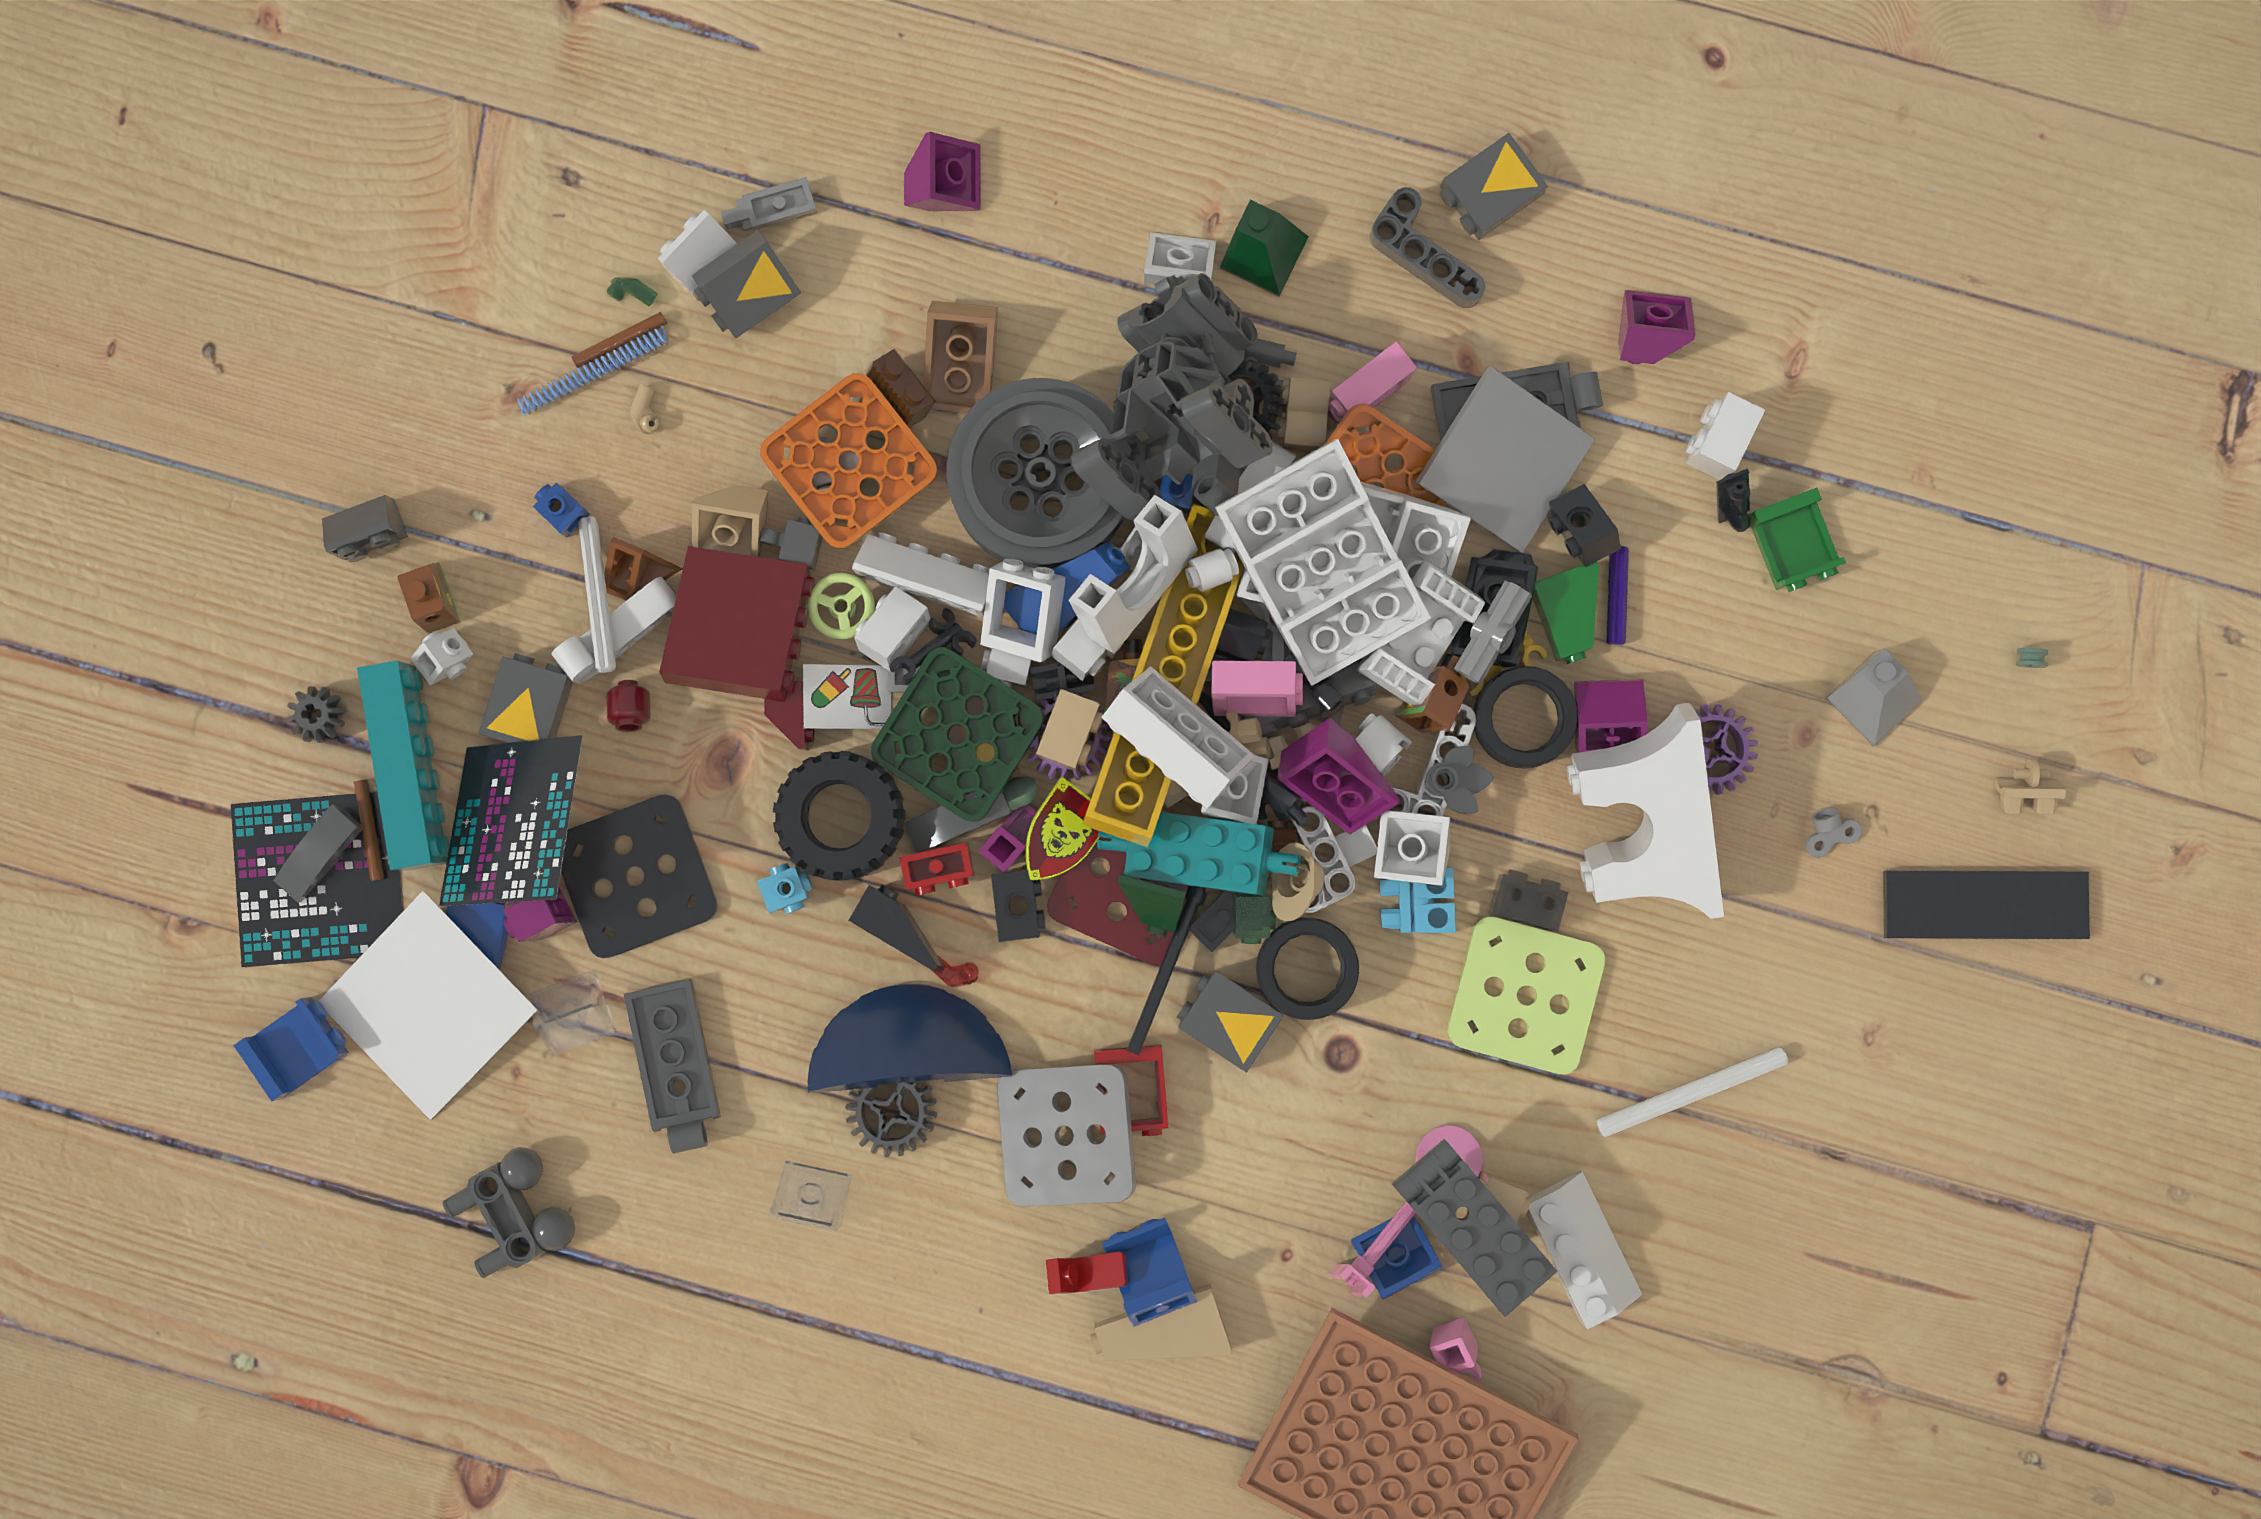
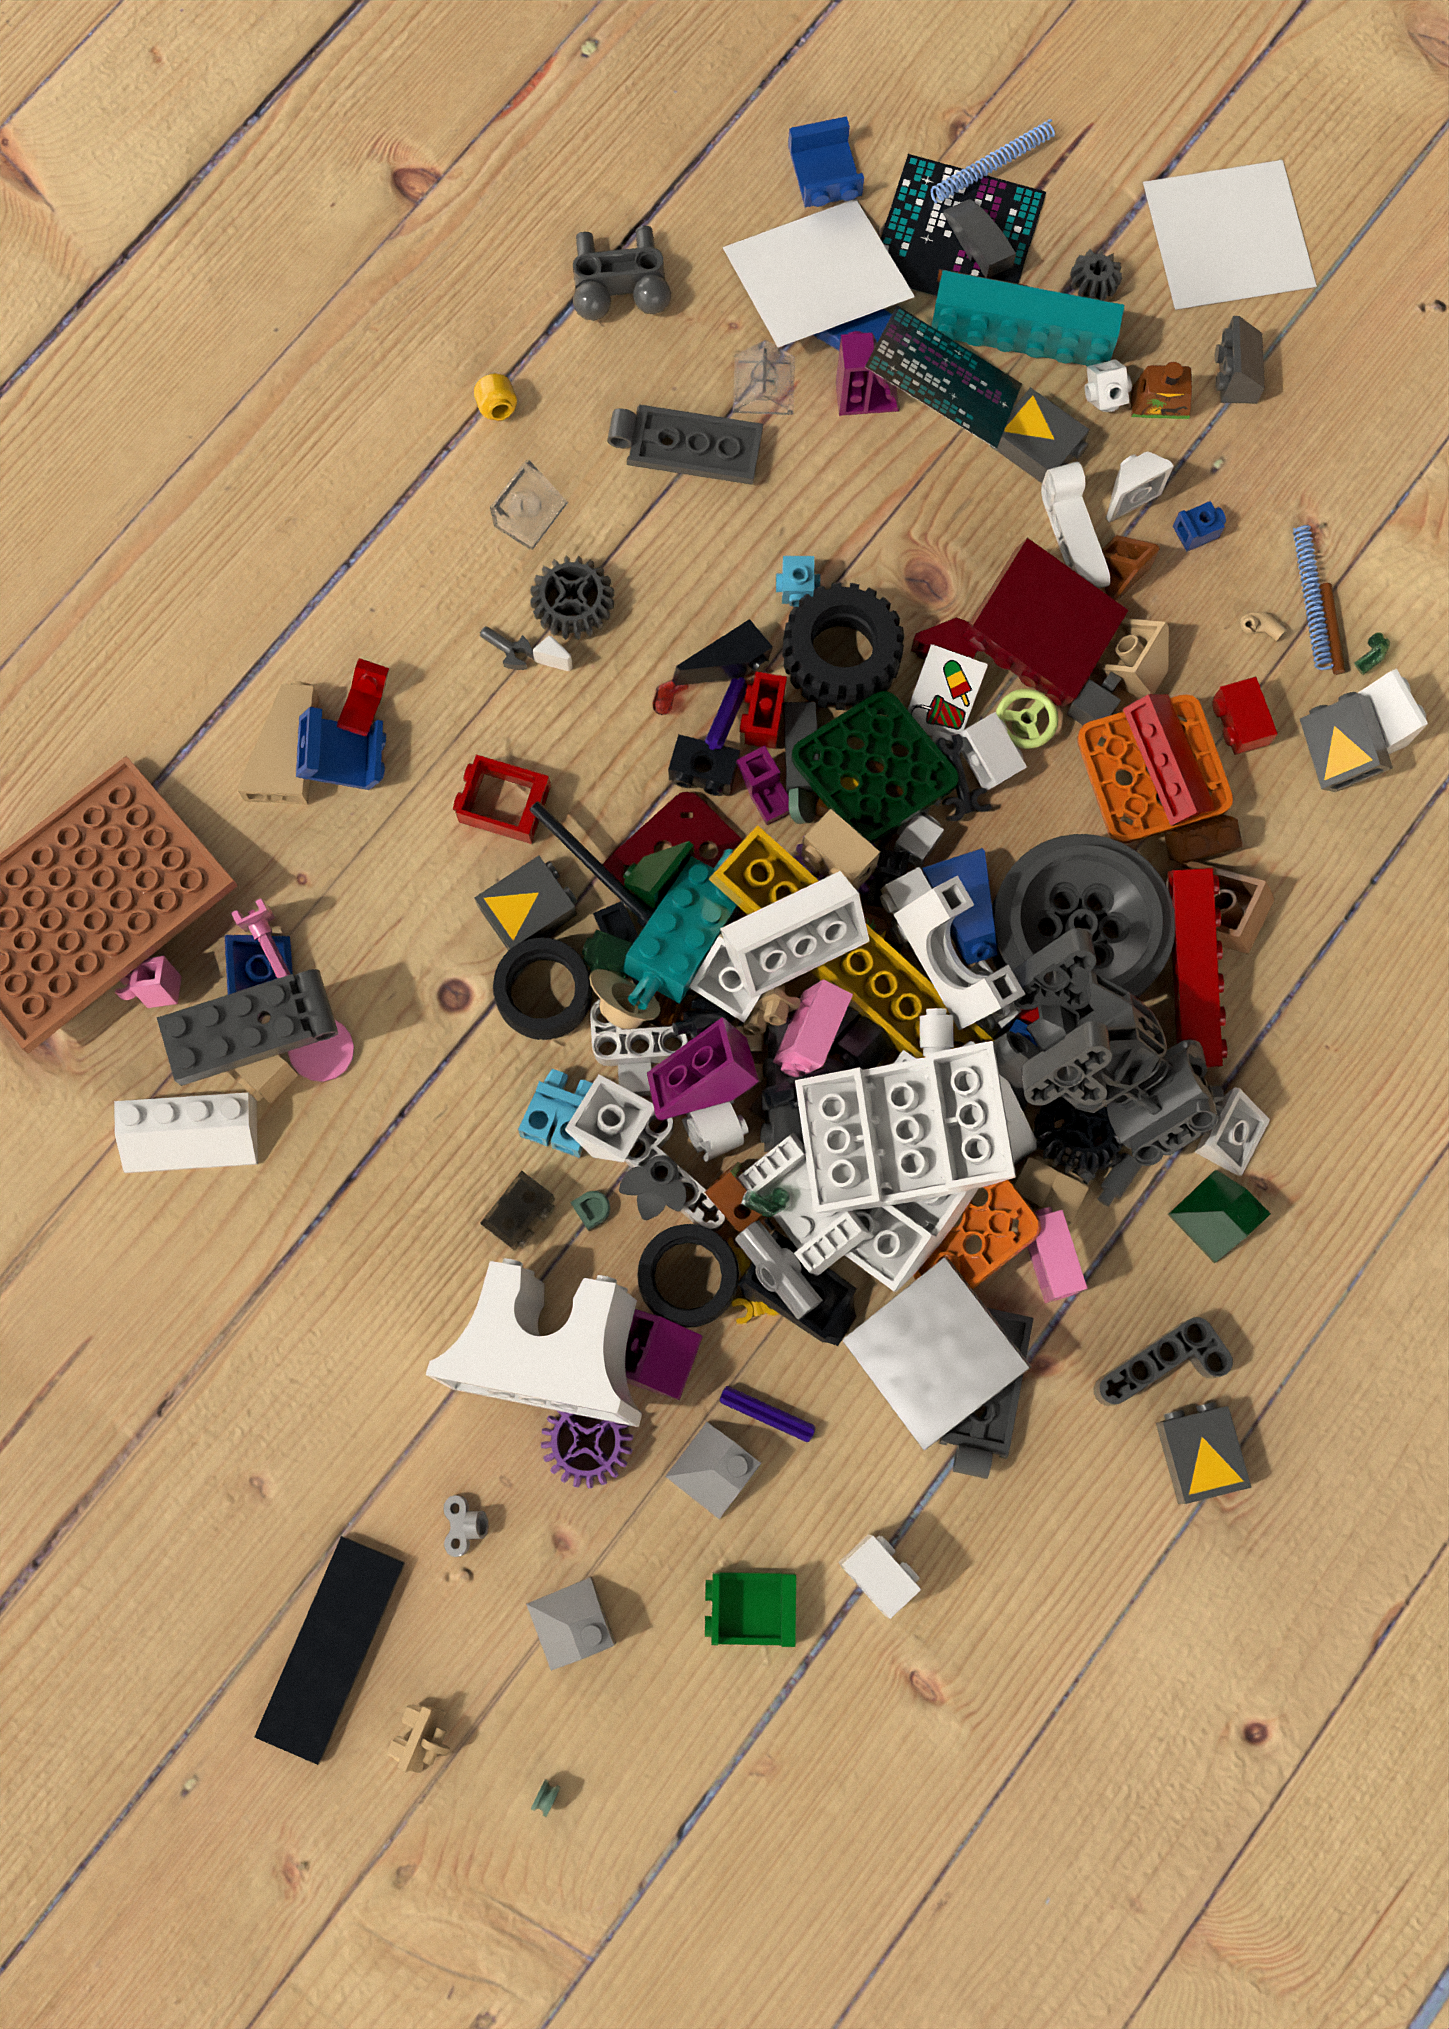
camera: 110 degrees right, 10 degrees down
(179, 840) = (980, 169): none -> light blue piece
(206, 595) = (1229, 234): none -> white sticker
(539, 589) = (1137, 483): none -> white slope
(596, 594) = (1113, 522): white axle -> none
(628, 706) = (1007, 516): dark red head -> none
(668, 891) = (834, 494): black piece -> none
(702, 1283) = (495, 397): none -> yellow head
(754, 393) = (1244, 715): none -> red brick
(771, 206) = (1409, 797): light grey hinge -> none
(837, 448) = (1168, 758): none -> red panel
(906, 1037) = (628, 630): dark blue brick -> none
(923, 574) = (1026, 797): white slope -> none
(944, 175) = (1388, 954): magenta slope -> none
(956, 903) = (726, 714): none -> dark purple axle
(959, 1104) = (552, 654): none -> white slope
(967, 1155) = (509, 648): none -> dark grey bar
(1013, 640) = (955, 833): white window -> none
(1035, 351) = (1196, 962): none -> red brick
(1057, 835) = (743, 808): shield -> none
(1088, 1107) = (506, 761): light grey piece -> none
(1437, 664) = (768, 1205): none -> clear green arm
(1494, 1013) = (399, 1182): yellowish green piece -> none
(1495, 835) = (592, 1208): none -> sand green tile
(1569, 611) = (771, 1359): green slope -> none
(1584, 526) = (845, 1403): black brick -> none
(1654, 326) = (1012, 1555): magenta slope -> none
(1687, 623) = (713, 1470): none -> light grey slope
(1692, 1092) = (281, 1293): white axle -> none
(1734, 500) = (814, 1560): black hinge -> none

